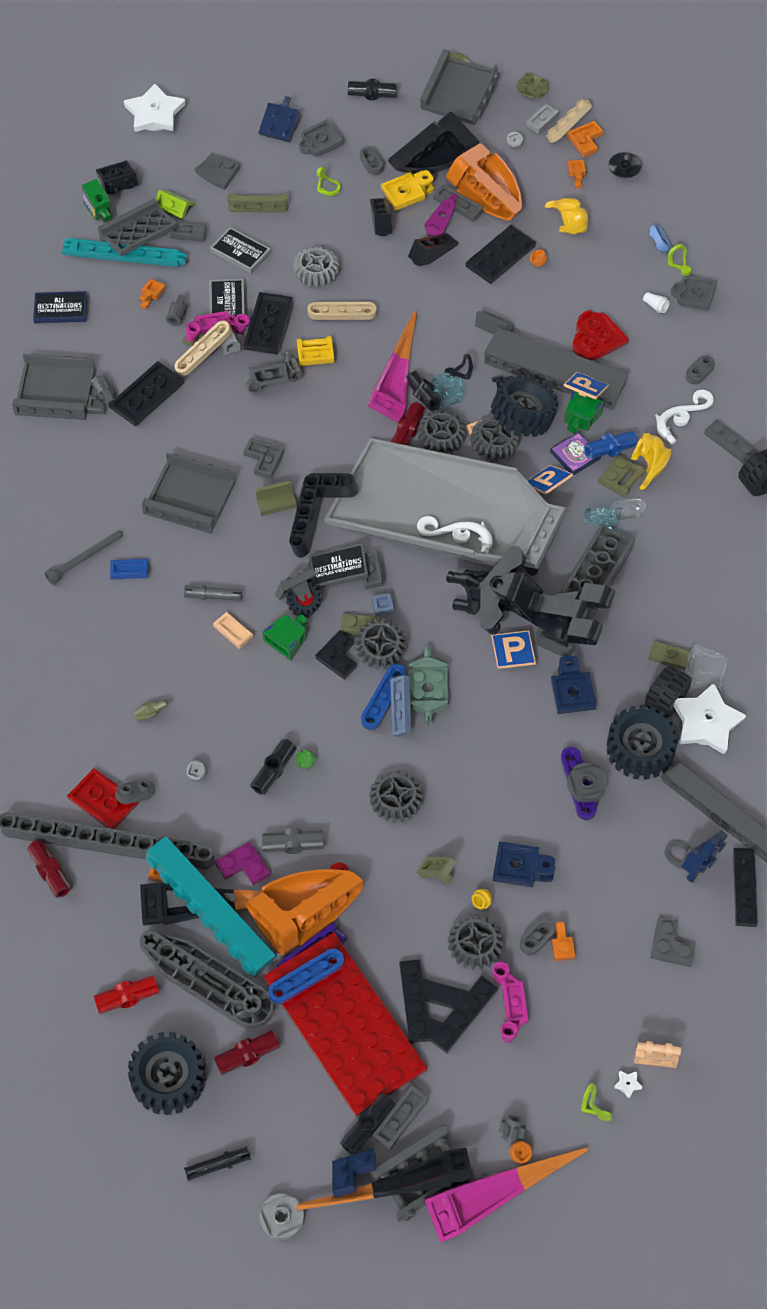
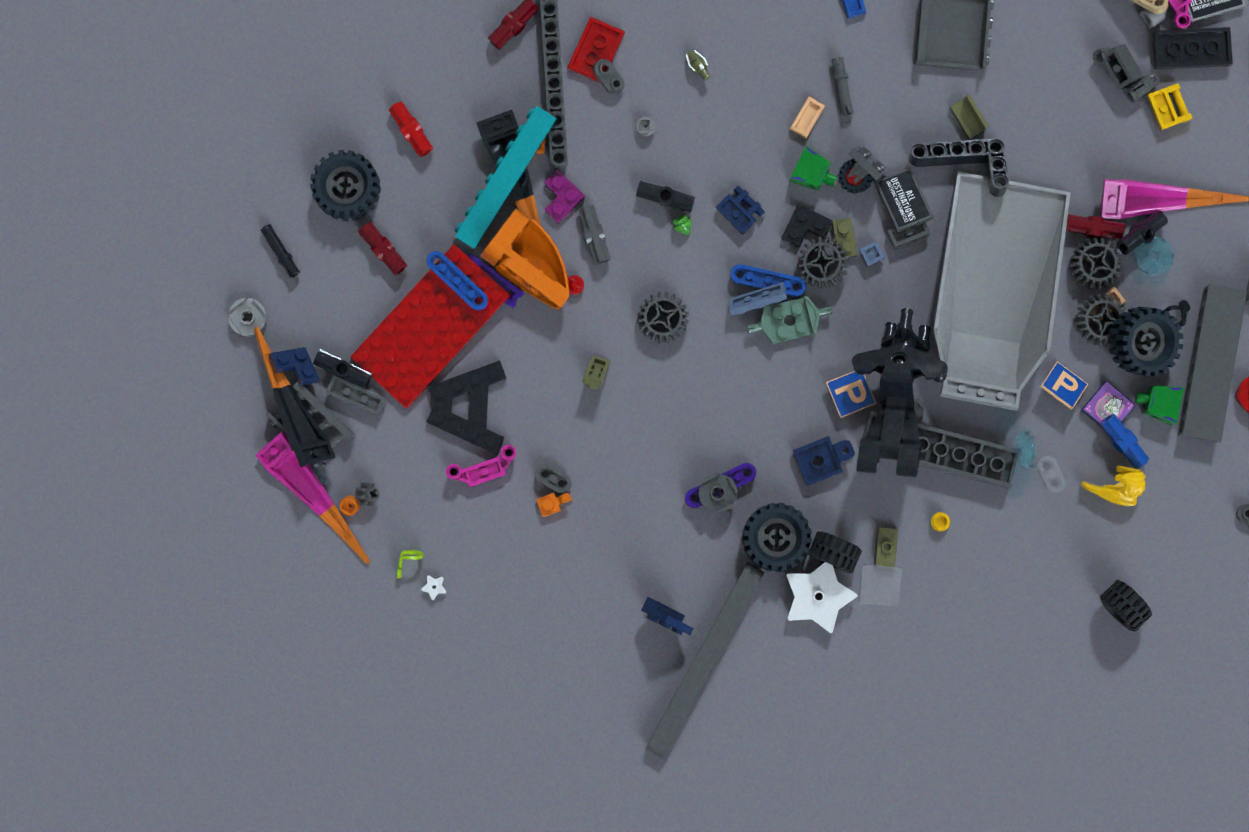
camera: 80 degrees right, 25 degrees up
(197, 970) = (444, 183): dark grey beam -> none
(266, 454) = (1021, 95): dark grey plate -> none
(308, 710) = (736, 214): none -> dark blue plate
(342, 310) = (1230, 121): tan plate -> none
(454, 371) = (1180, 255): black piece -> none
(458, 536) = (980, 306): white plant -> none
(460, 947) = (525, 428): dark grey gear -> none
(482, 898) = (578, 421): yellow plate -> none
(532, 865) = (621, 458): dark blue plate -> none
(586, 385) = (1188, 400): piece -> none
(617, 472) = (1094, 454): olive plate -> none
(654, 605) = (940, 521): none -> yellow plate
(657, 1054) = (463, 615): light nougat plate -> none
(667, 949) = (572, 597): dark grey plate -> none
(678, 864) = (661, 594): dark grey piece -> none
(682, 411) = (1194, 507): white plant -> none
(730, 441) = (1167, 566): dark grey plate -> none
(744, 887) = (651, 660): black plate -> none

